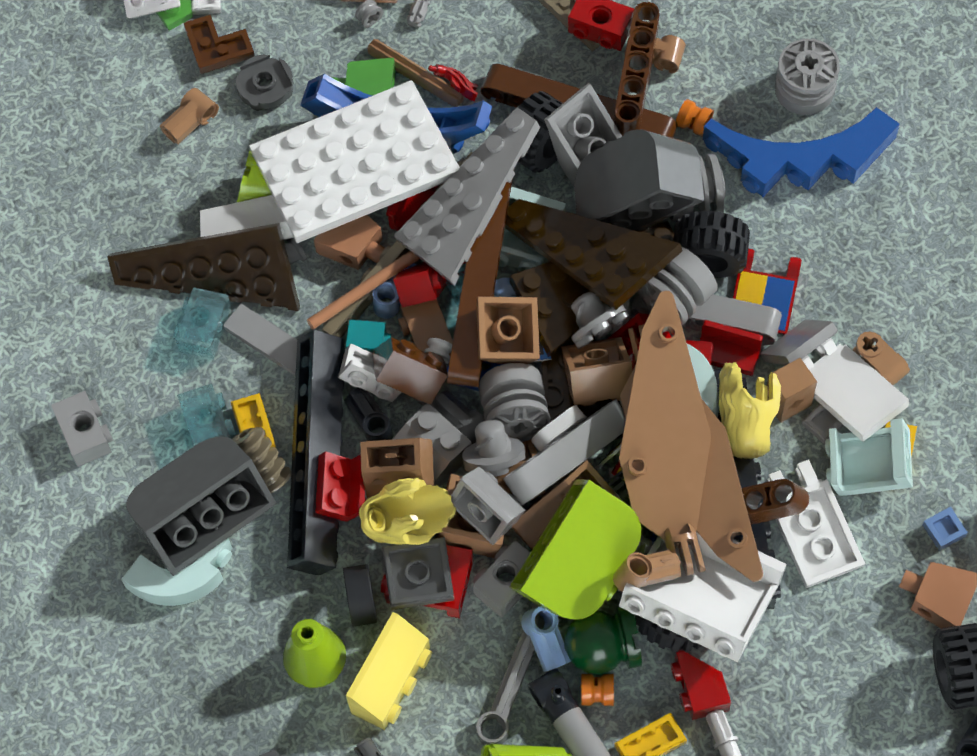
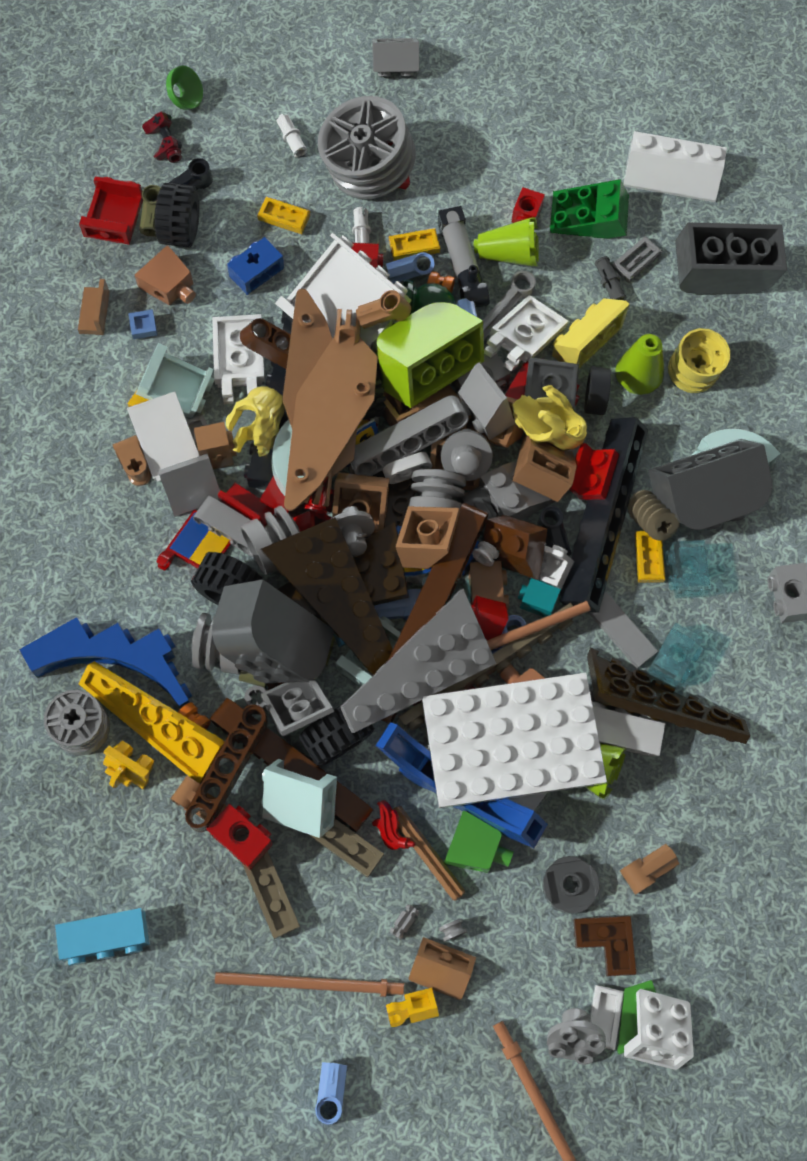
camera: 170 degrees left, 5 degrees up
(229, 661) = (706, 351): none -> light yellow wheel
(469, 651) = (525, 331): none -> white tile
(487, 51) = (351, 848): none -> dark tan plate
(538, 52) = (298, 800): none -> light aqua panel
(633, 706) = (407, 267): none -> light blue piece
(693, 91) = (168, 731): none -> yellow wing
(753, 63) = (124, 769): none -> yellow hips
(834, 733) = (283, 215): none -> yellow plate
(845, 628) = (255, 265): none -> blue brick

